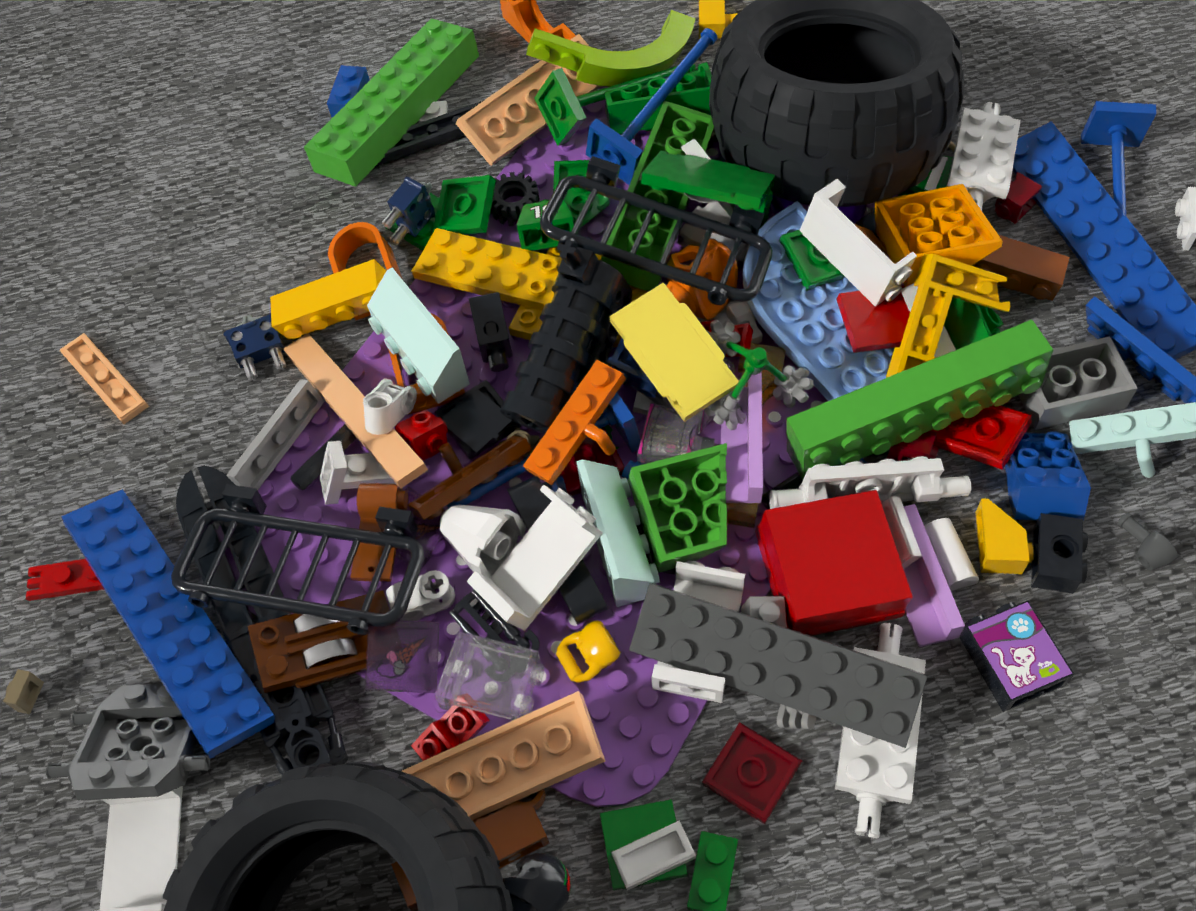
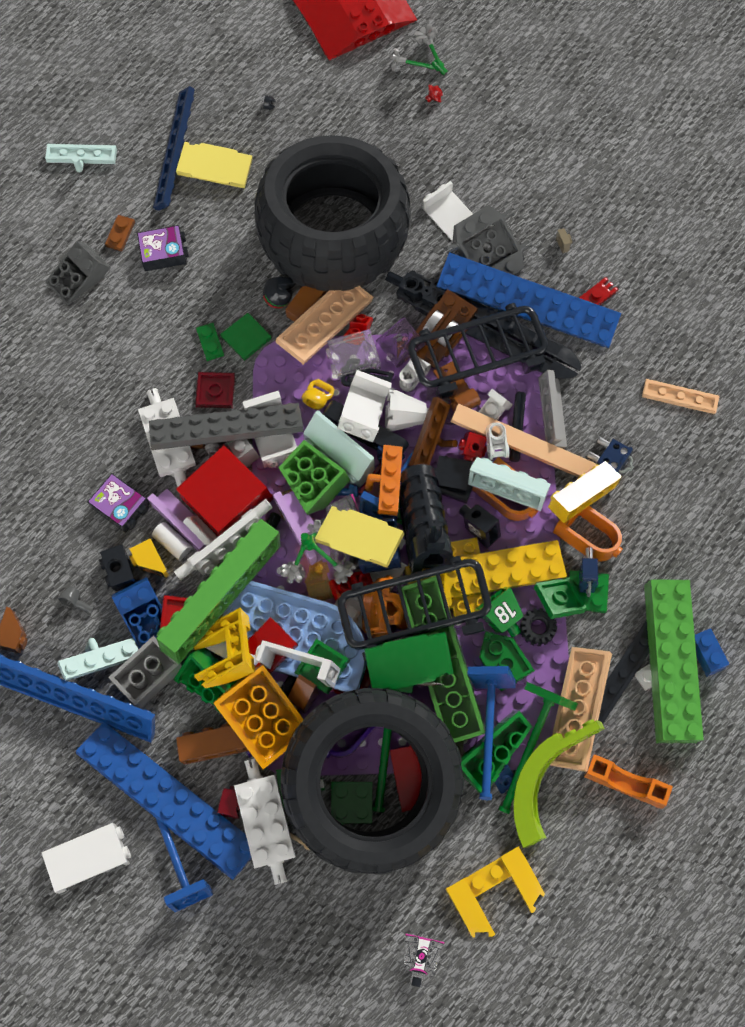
camera: 145 degrees right, 10 degrees up
(653, 855) = (237, 331): white tile -> none

